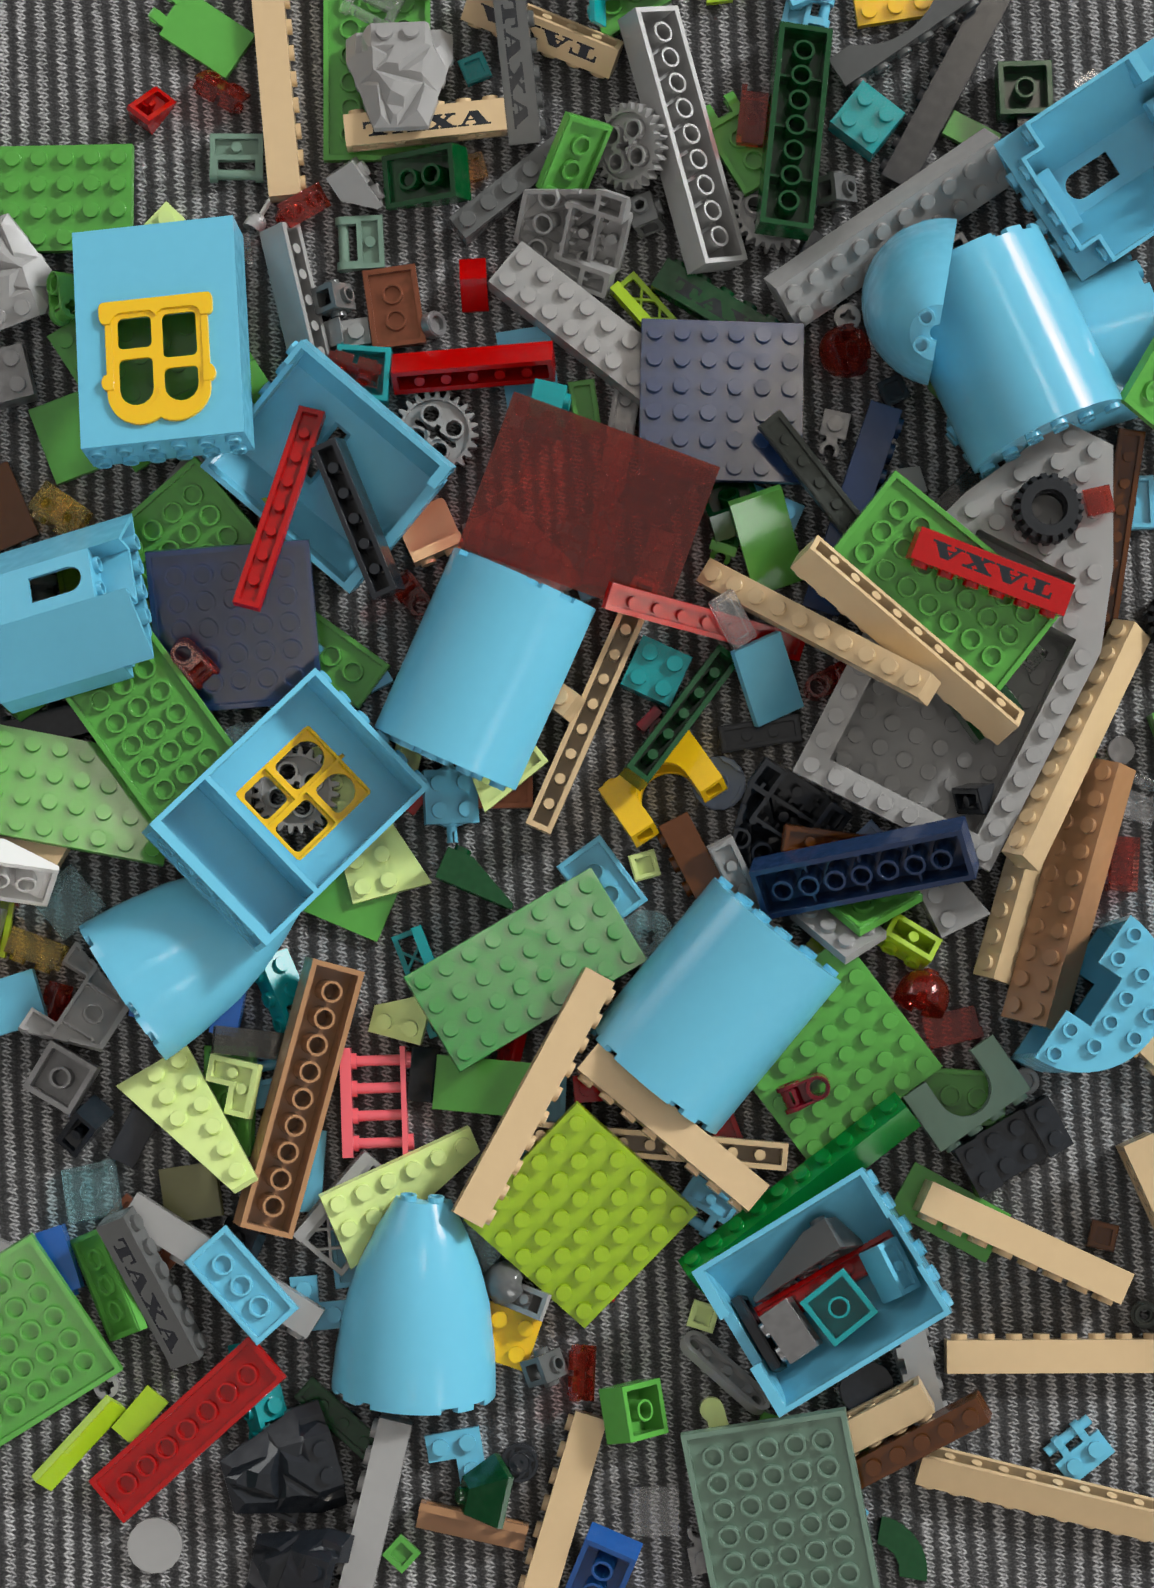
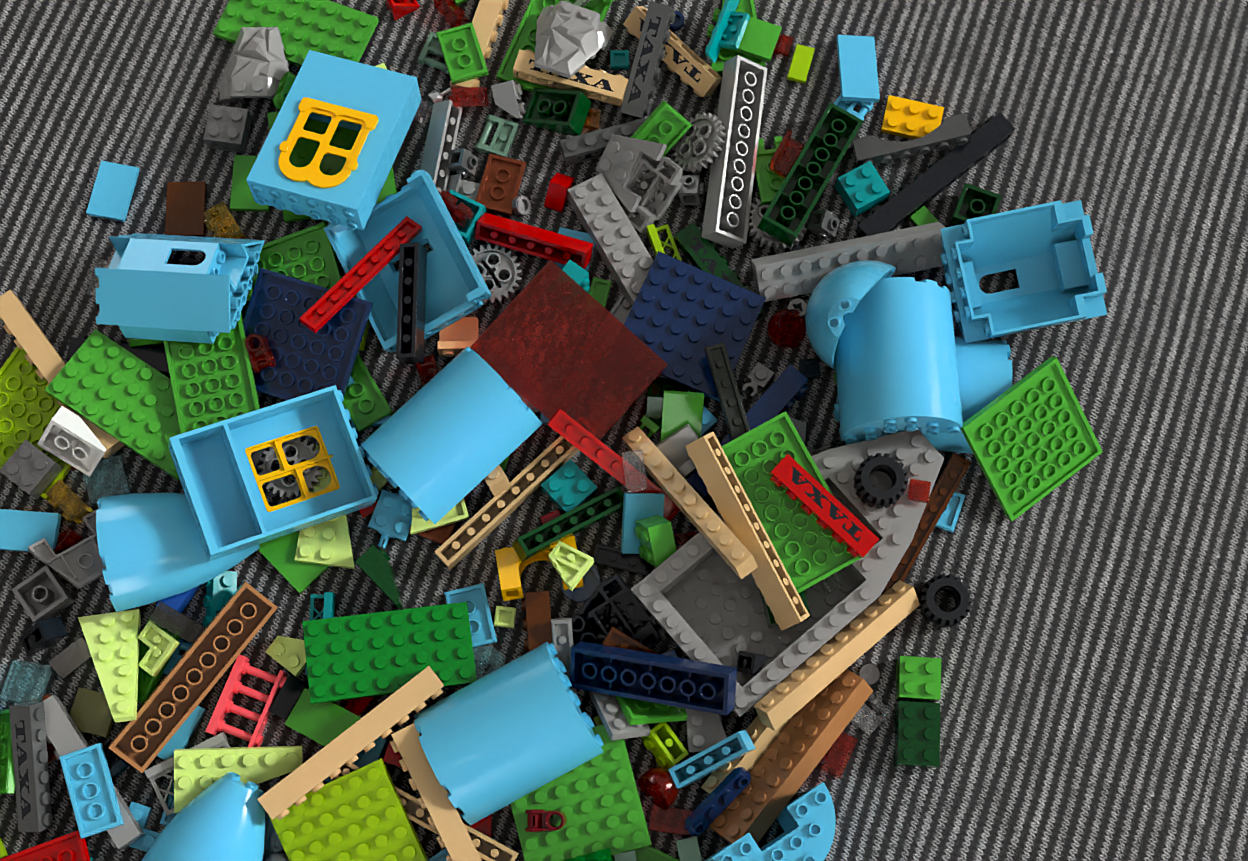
camera: 20 degrees right, 10 degrees down
(268, 149) = (462, 53): none -> bright green tile
(541, 217) = (620, 163): none -> light grey wing
(702, 769) = (570, 563): none -> yellowish green wing
(773, 564) = (674, 445): none -> light grey tile
(794, 694) = (655, 539): none -> bright green brick
(797, 589) = (687, 469): none -> light grey beam
(975, 935) = (711, 759): none -> medium azure brick
(1001, 982) = (717, 801): none -> dark blue plate

